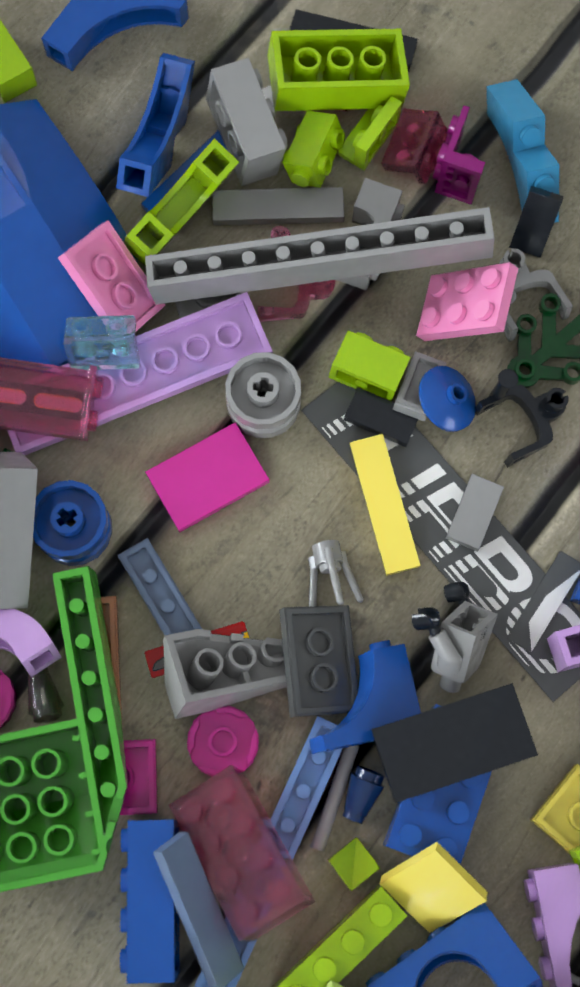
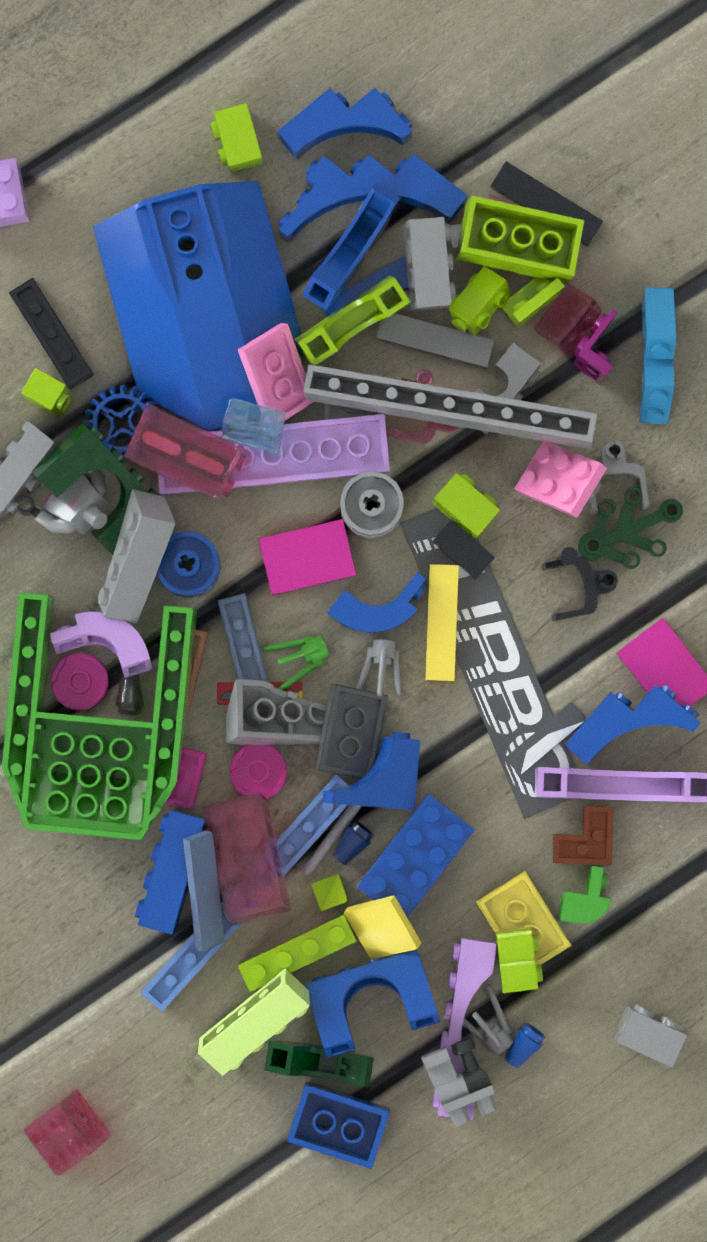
camera: 20 degrees right, 10 degrees up
(121, 82) = (332, 188): none -> blue arch
(245, 579) = (312, 650): none -> bright green plant
(304, 522) = (377, 619): none -> blue arch
(408, 397) = (502, 533): light grey tile -> none
(447, 398) = (511, 551): blue dish -> none
(453, 742) = (431, 827): black tile -> none
(460, 639) = (464, 750): light grey torso -> none
(474, 512) = (512, 651): light grey tile -> none
(536, 221) = (643, 423): black tile -> none

